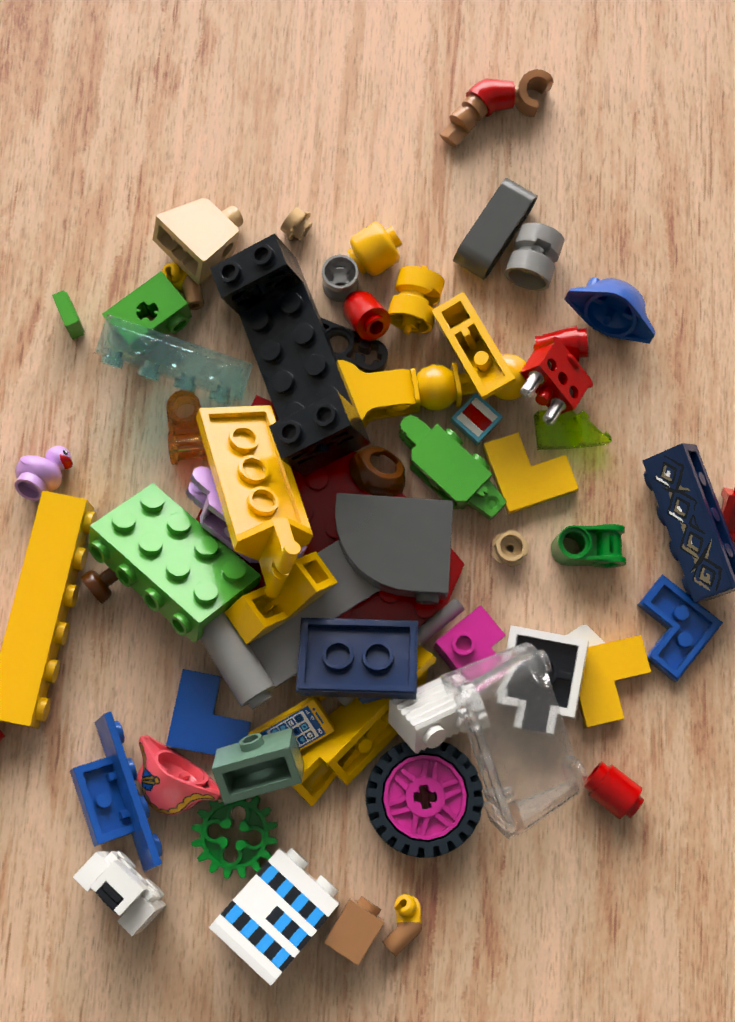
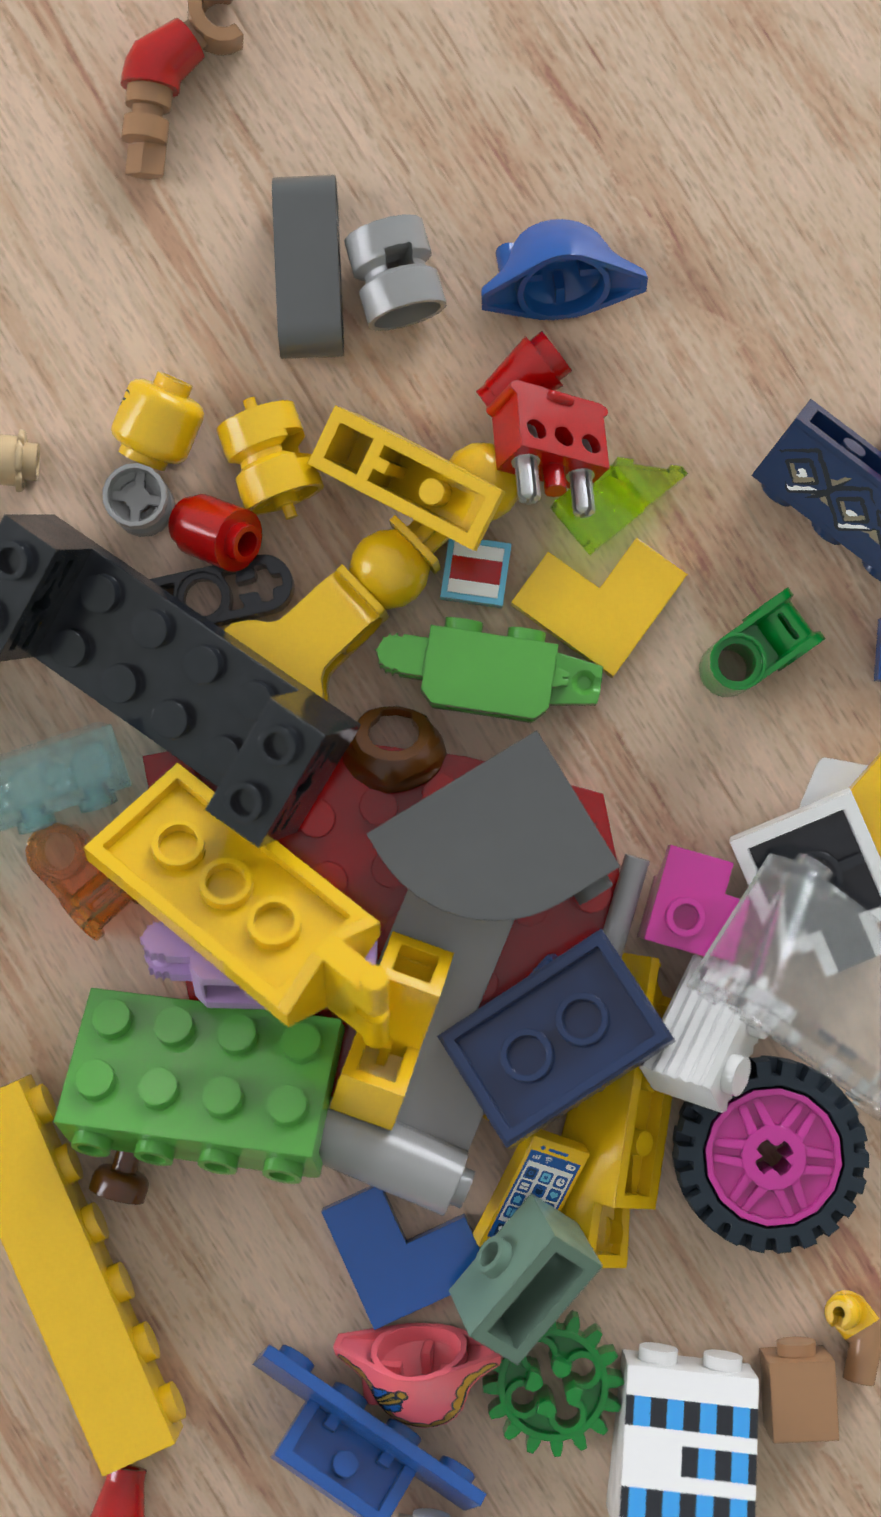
camera: 30 degrees left, 10 degrees up
(519, 545) = (649, 743): tan plate -> none

